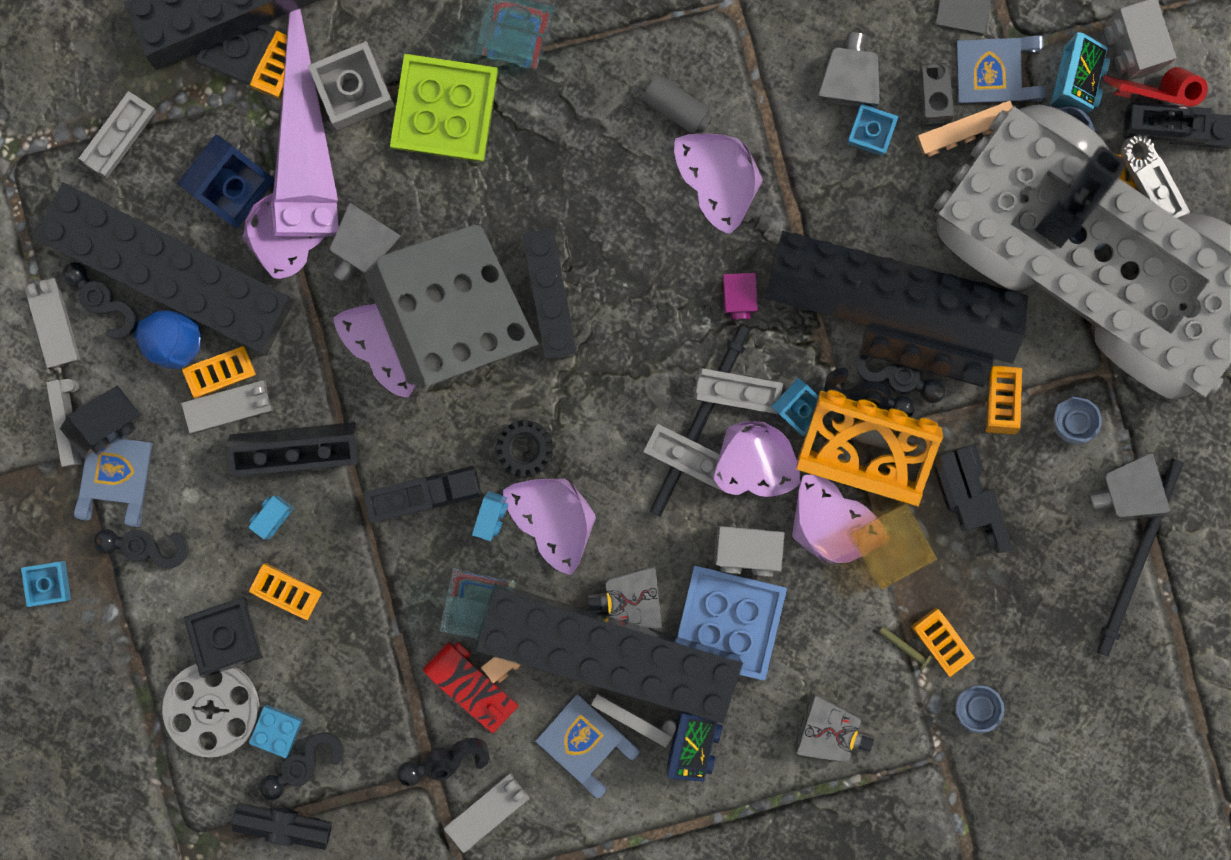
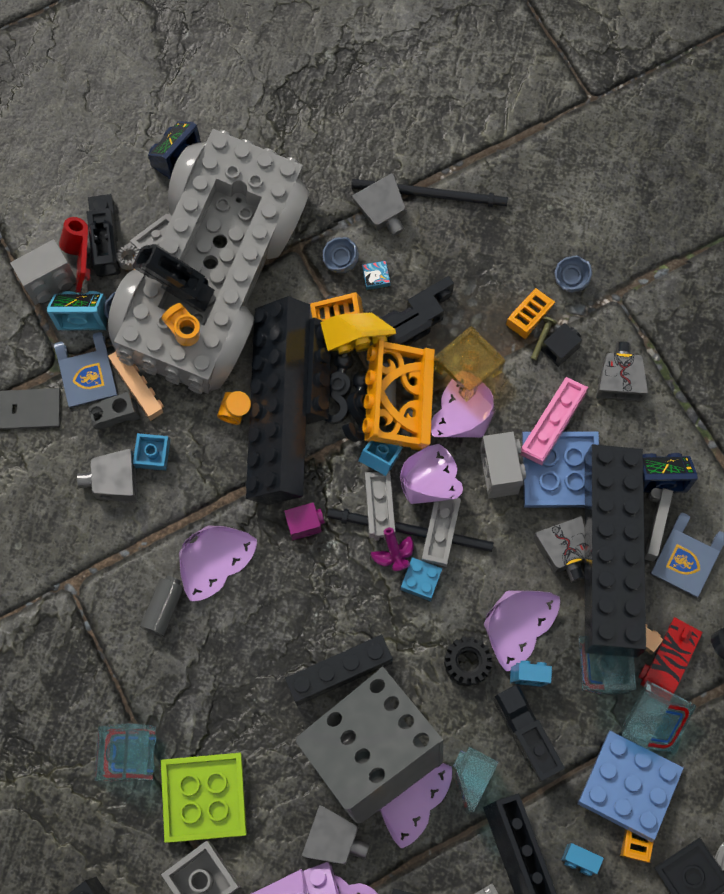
camera: 105 degrees left, 15 degrees down
(337, 596) = (630, 786): none -> medium blue plate
(389, 417) = (473, 776): none -> clear light blue slope
(403, 647) = (657, 718): none -> clear light blue slope
(635, 418) = (421, 579): none -> dark azure piece
(673, 394) = (397, 552): none -> magenta plant
(791, 630) = (553, 421): none -> bright pink tile
(889, 669) = (562, 344): none -> black brick
(903, 241) = (234, 407): none -> light orange piece
(963, 412) = (354, 332): none -> yellow slope
(1023, 191) = (177, 318): none -> light orange piece
(1041, 460) = (376, 275): none -> tile

